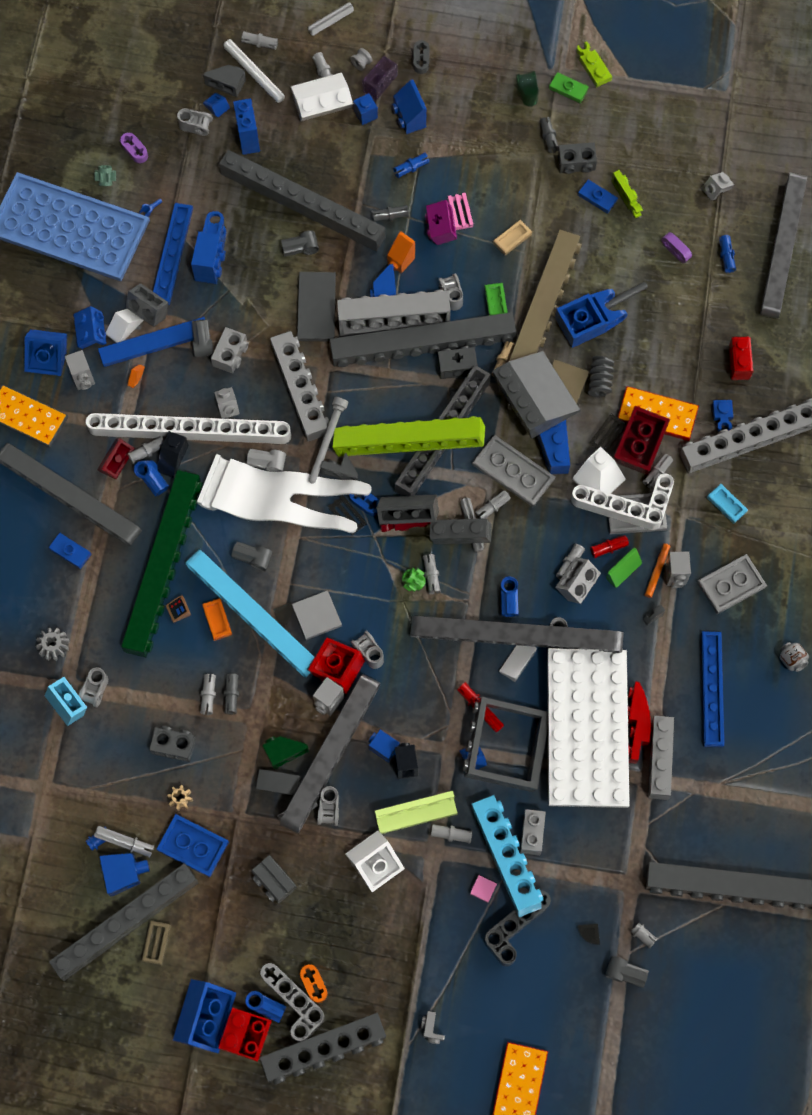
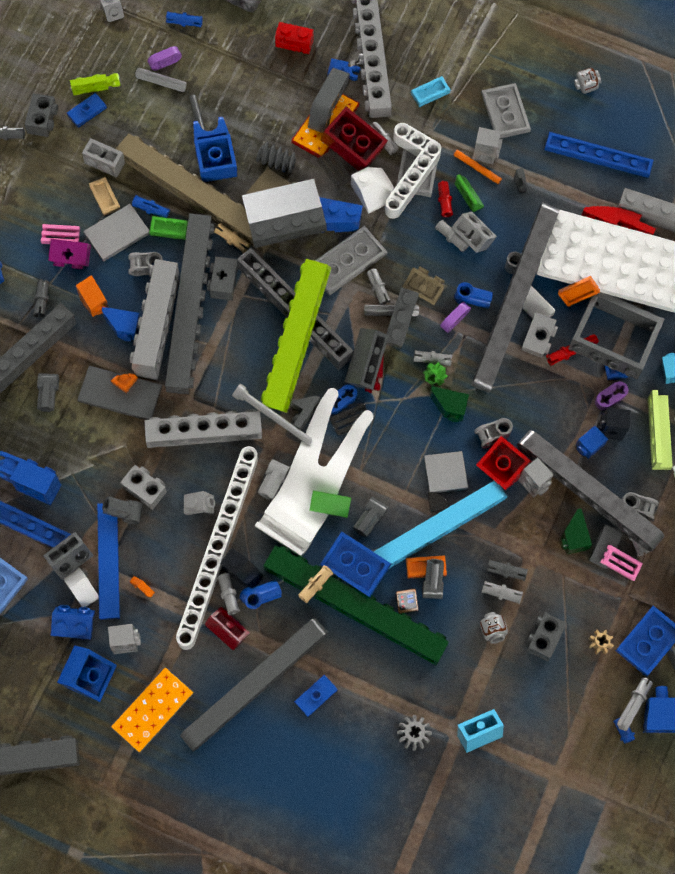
camera: 80 degrees left, 0 degrees up
(93, 688) = (471, 701): light grey piece -> none
(168, 517) = (315, 584): none -> tan pin
(169, 693) = (493, 627): none -> light grey head
(196, 549) = (356, 564): none -> blue plate
(198, 627) = (433, 582): none -> dark grey piece
(254, 514) = (330, 504): none -> bright green slope
(273, 785) = (605, 561): none -> bright pink tile
(326, 305) = (124, 381): none -> orange tile
(386, 602) = (450, 403): none -> dark green slope
(445, 753) = (609, 392): none -> medium lavender beam
(475, 662) = (539, 324): none -> light grey brick
(478, 258) = (116, 232): none -> light grey tile
(481, 585) = (455, 317): none -> medium lavender beam
(508, 549) = (427, 286): none -> dark tan bracket
(513, 269) = (150, 207): none -> blue pin
(541, 696) = (579, 291): none -> orange tile
(548, 222) = (103, 157): none -> light grey brick
(653, 251) = (160, 79): none -> light grey axle
(680, 403) = (327, 99): none -> dark grey beam

